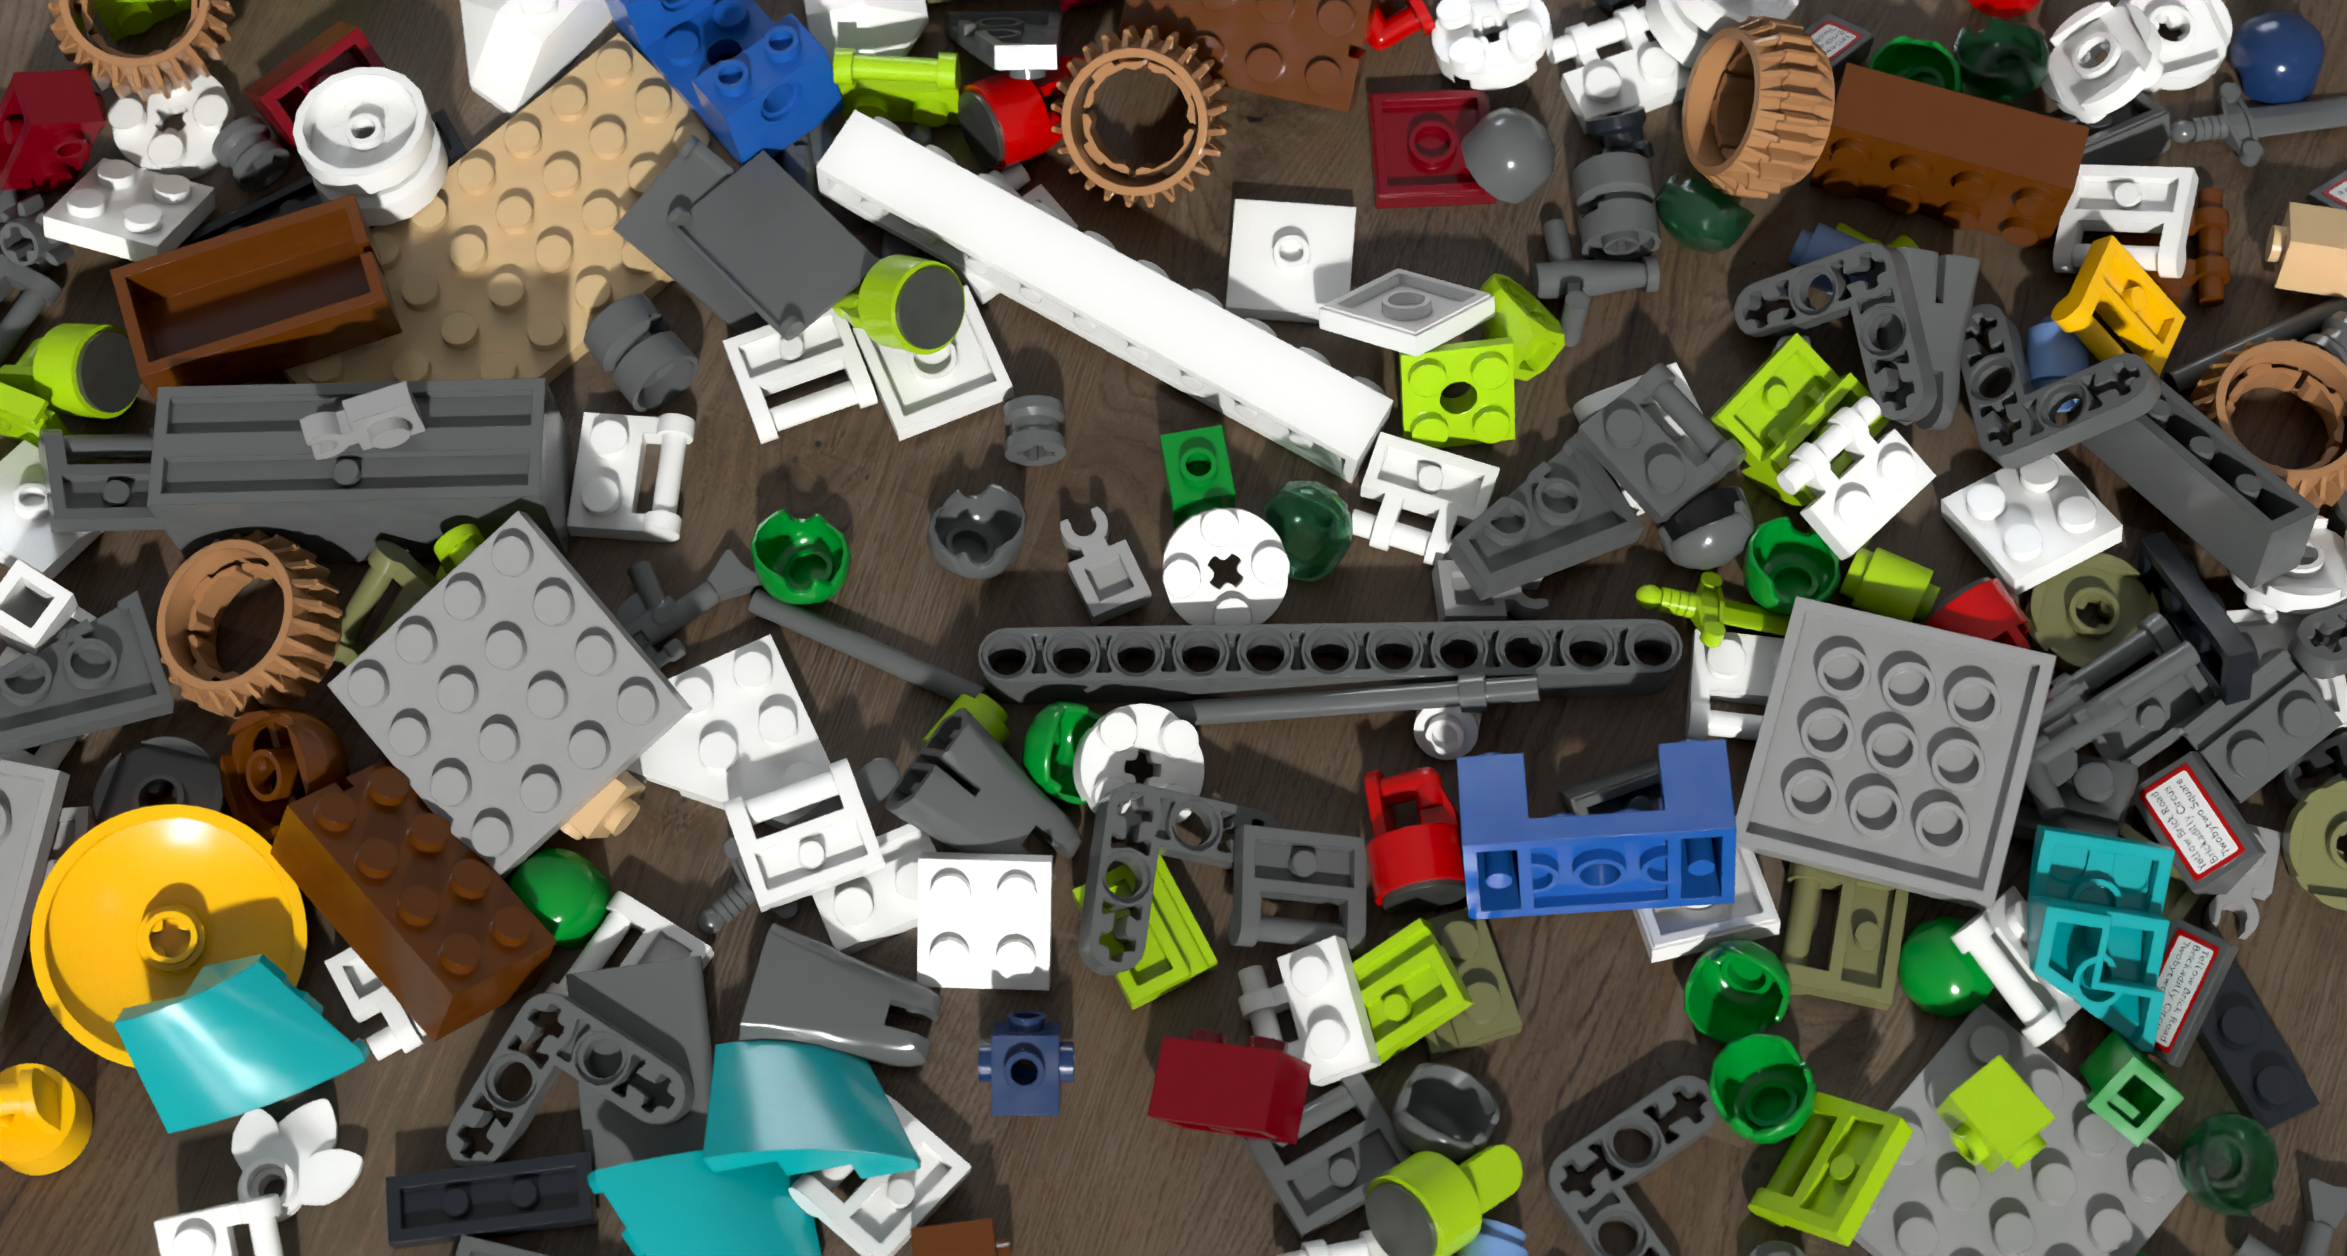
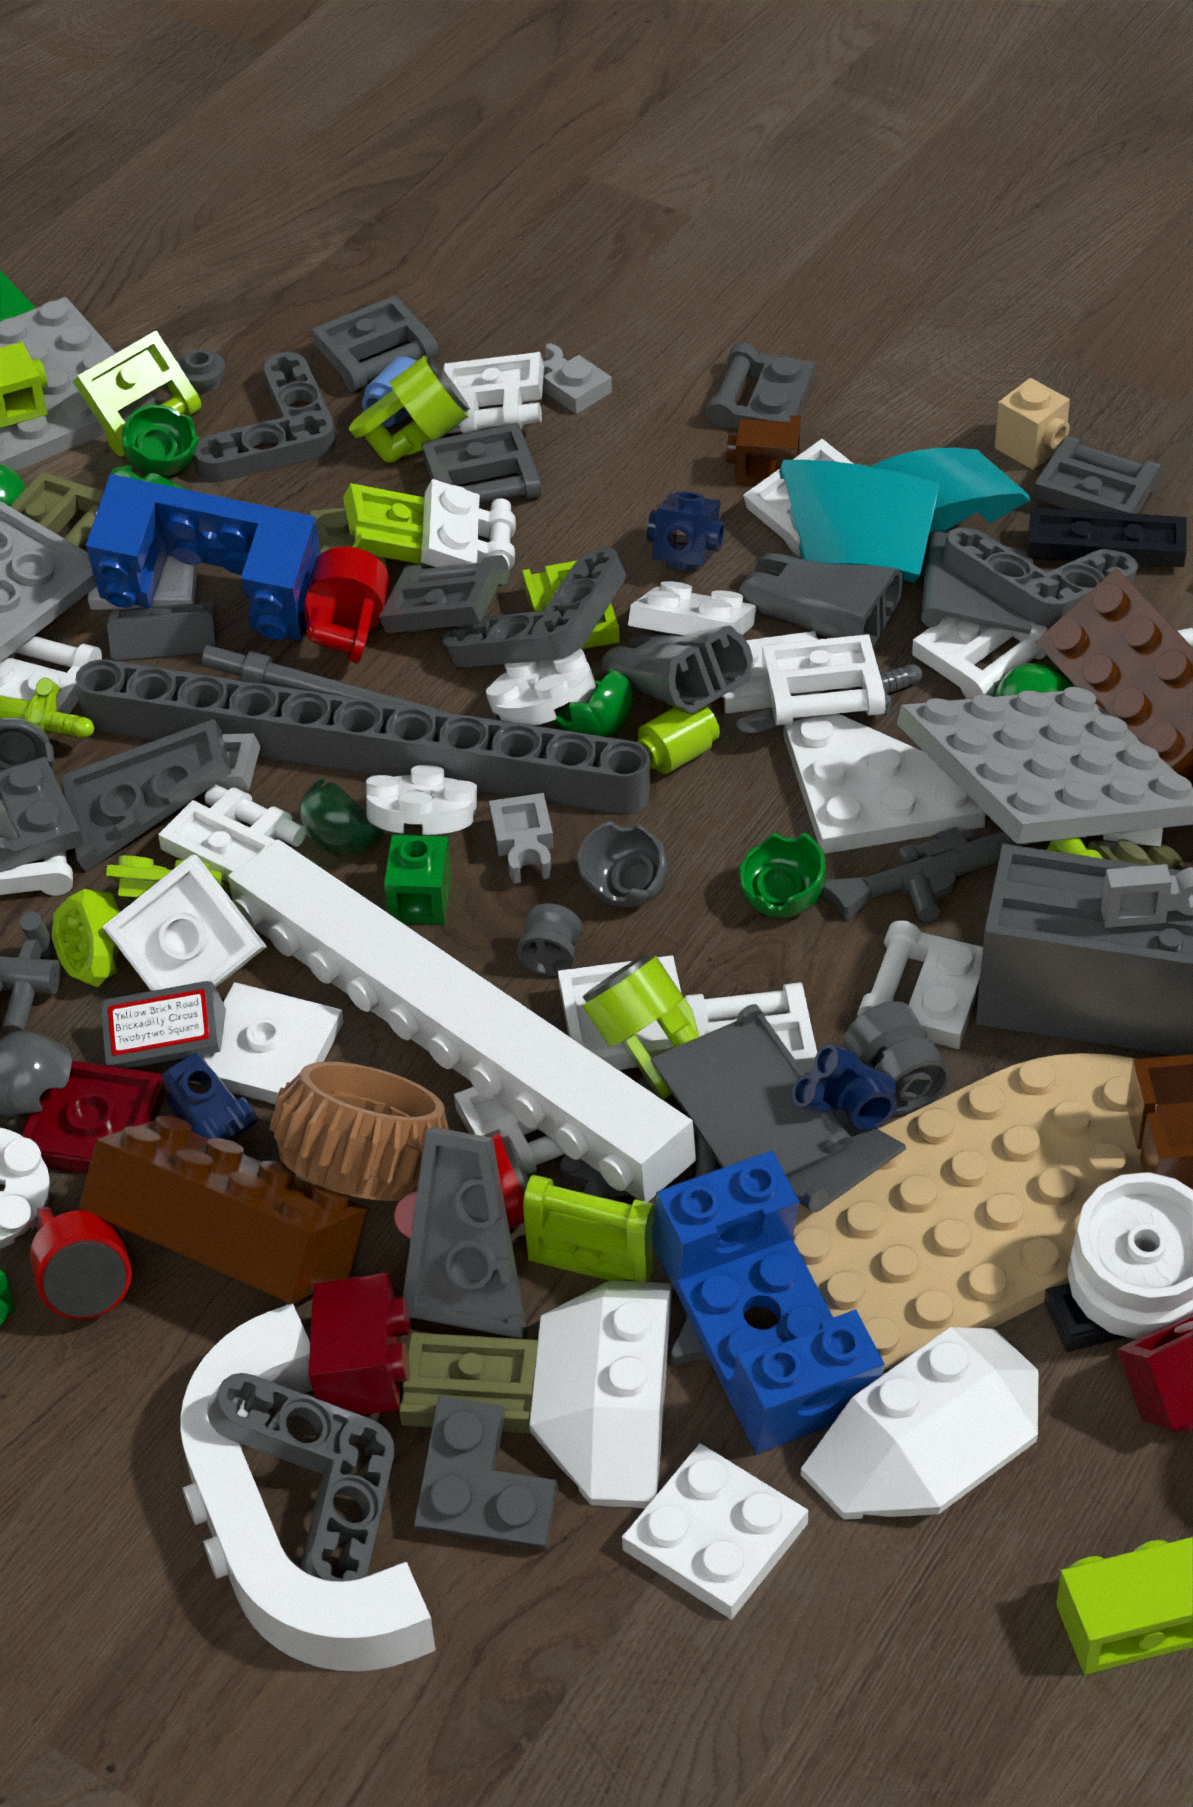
camera: 165 degrees left, 20 degrees down
(670, 258) = (846, 1085): none -> dark blue plate
(862, 647) = (717, 810): dark grey bar -> none
(1230, 1087) = (540, 483): dark red brick -> none
(1320, 163) = (211, 1113): none -> dark blue plate
(1395, 239) = (162, 1025): none -> slope
(1444, 1112) = (392, 457): dark grey hair -> none

